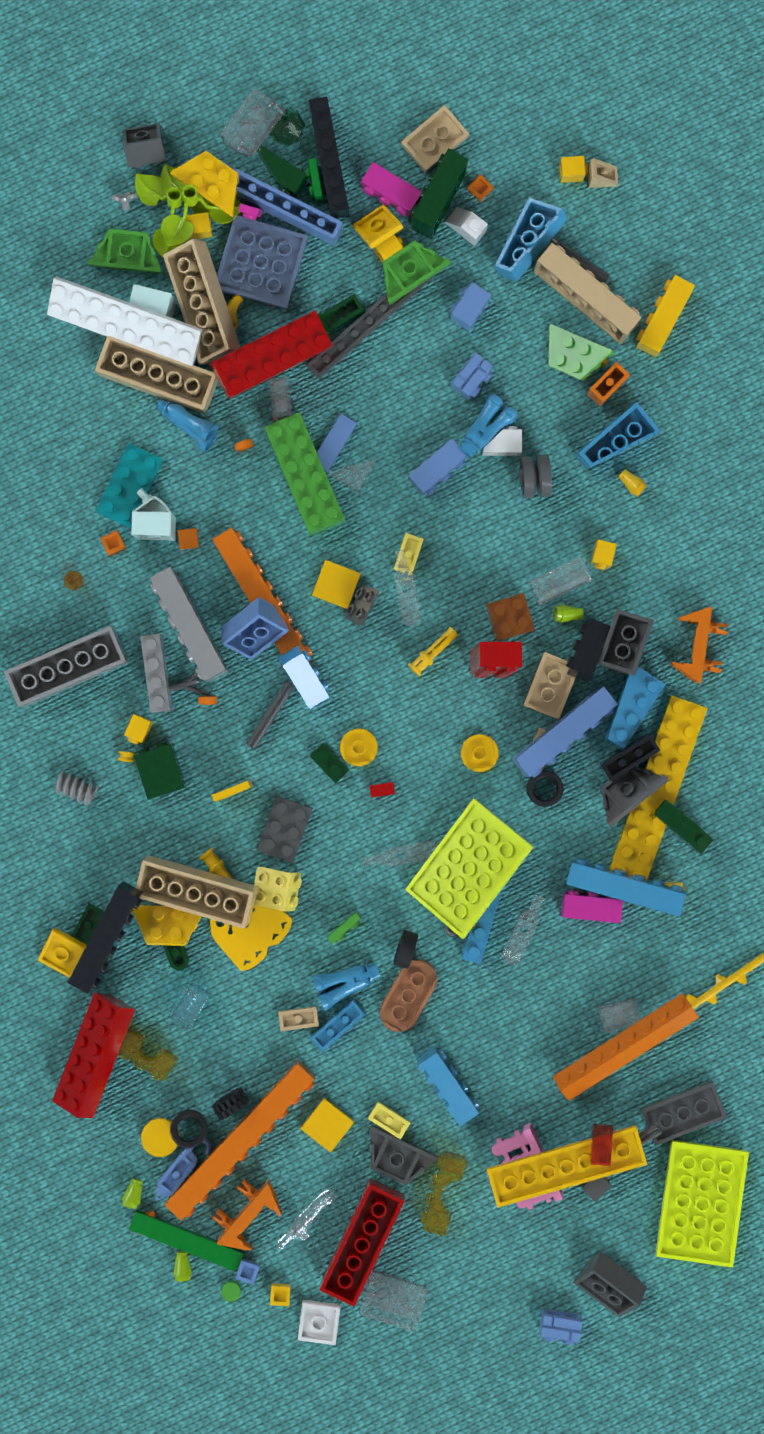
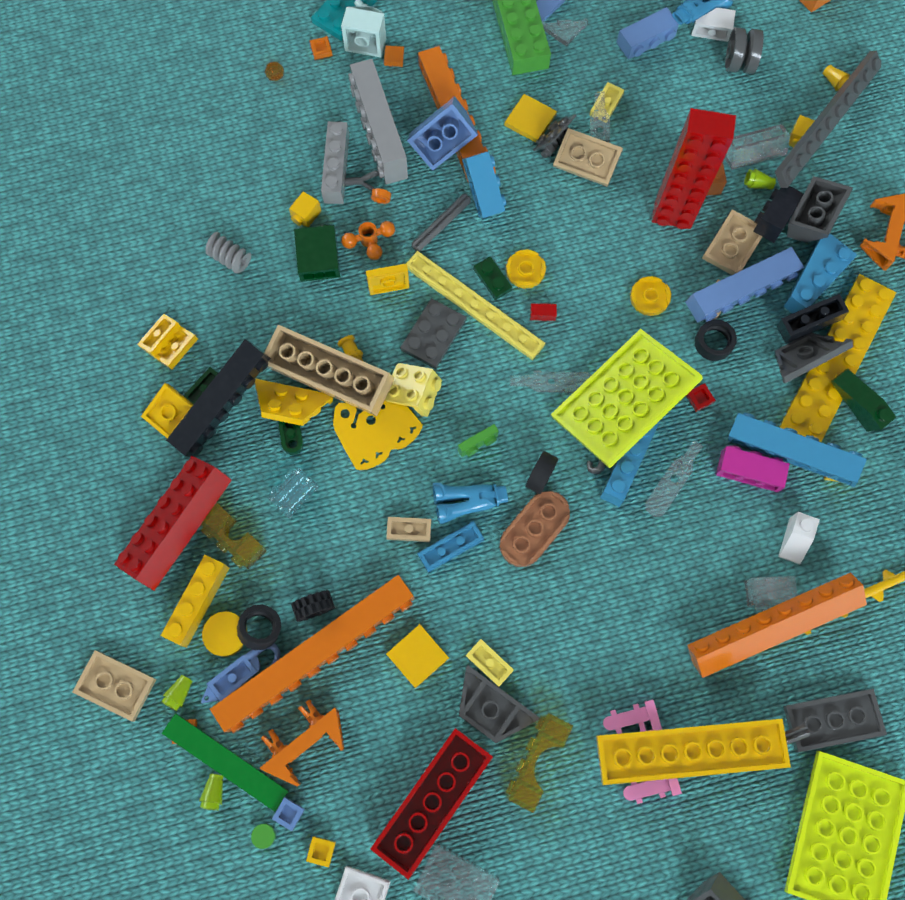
camera: 10 degrees right, 15 degrees down
(42, 883) = (167, 341): none -> yellow slope
(66, 667) = (247, 139): light grey brick -> none
(79, 1197) = (114, 686): none -> tan plate
(126, 756) = (285, 234): yellow bush -> none
(129, 1116) = (195, 601): none -> yellow brick
(213, 759) = (373, 250): none -> orange piece
(305, 1219) = (371, 761): clear piece -> none
(316, 793) = (475, 305): none -> light yellow tile
(398, 622) = (587, 157): none -> tan plate
(426, 658) = (611, 195): yellow pin -> none
(447, 1085) = (564, 633): dark azure wedge -> none
(540, 847) = (700, 397): none -> red plate
(597, 1187) = (722, 787): dark grey brick -> none
(601, 1144) = (739, 730): clear red tile -> none
(622, 433) = (828, 34): dark azure wedge -> none
(627, 537) = (827, 119): none -> dark grey plate
(638, 962) = (798, 537): none -> white slope

